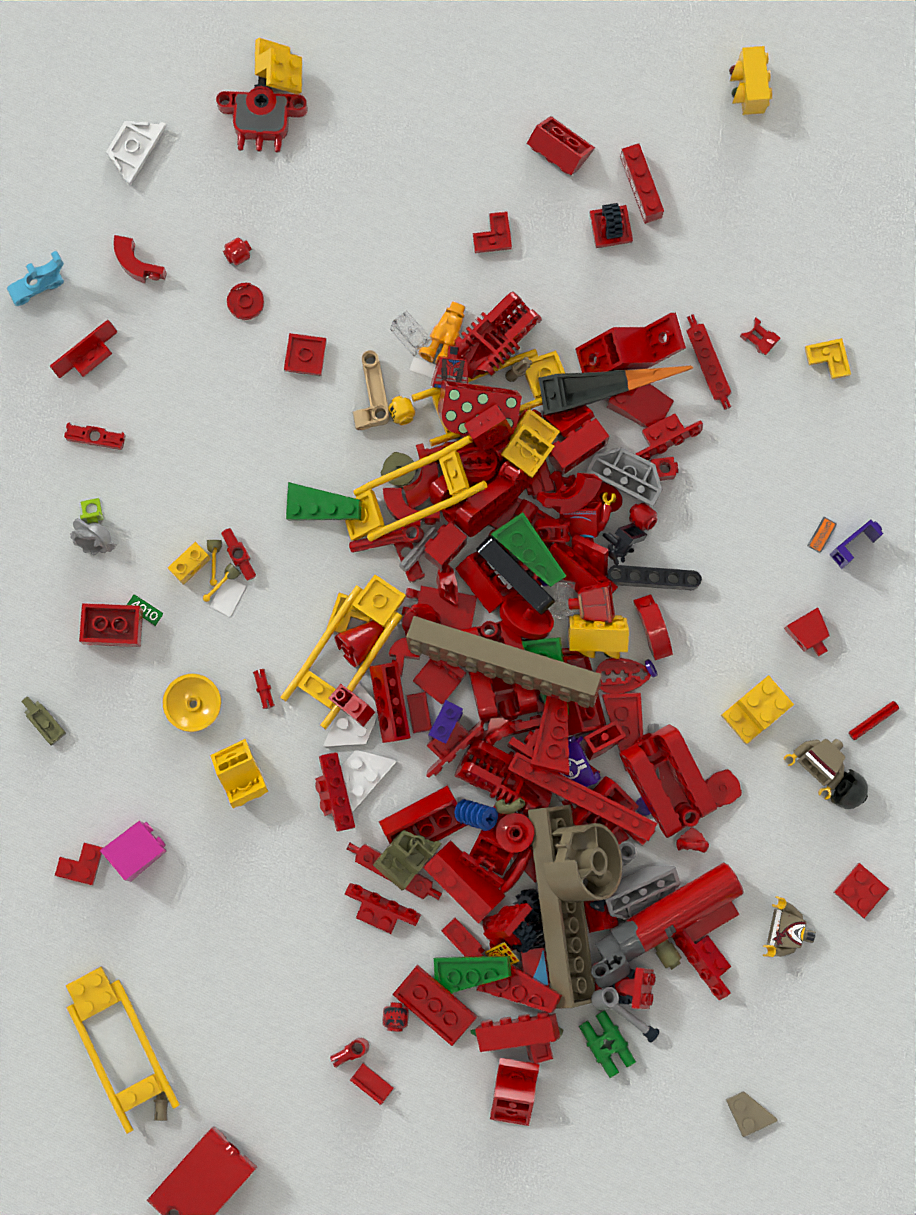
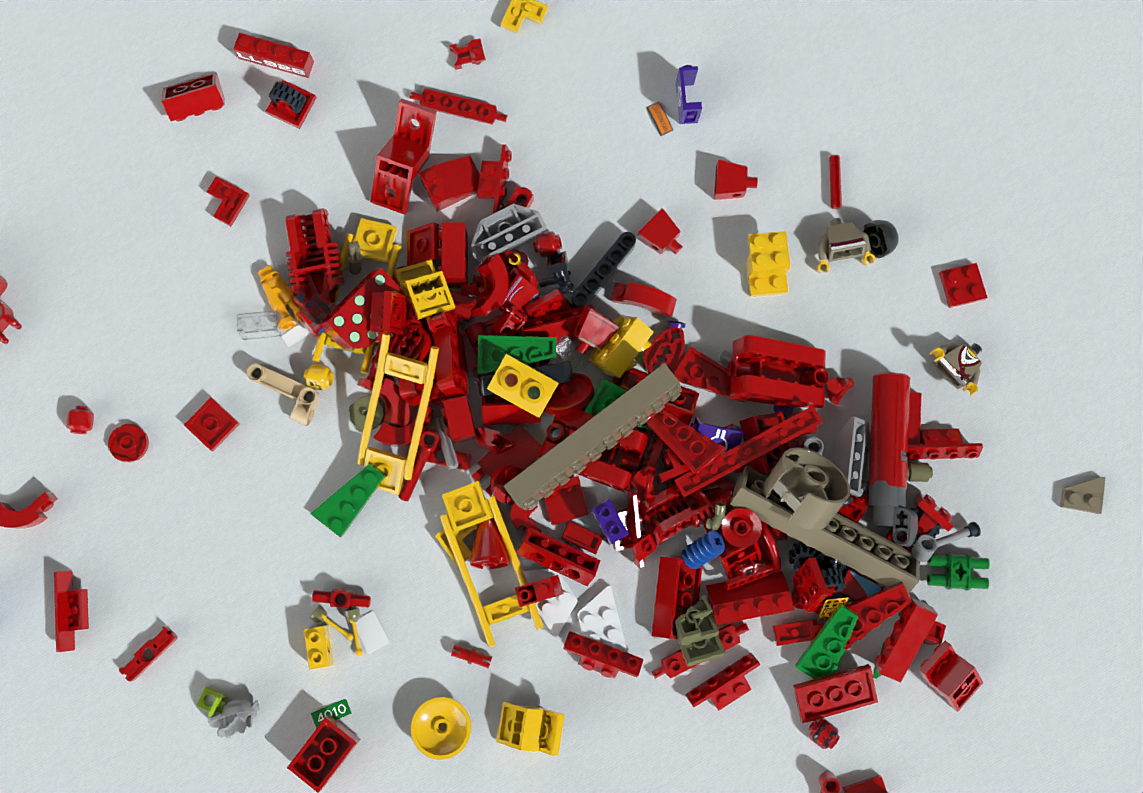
camera: 60 degrees left, 0 degrees up
(446, 765) = (644, 546): none -> red bracket
(506, 575) = (522, 385): none -> yellow piece
(575, 390) = (405, 225): pearl dark grey plate -> none
(602, 740) = (709, 402): red slope -> none
(719, 603) = (660, 233): none -> red torso
(724, 787) = (811, 333): red piece -> none

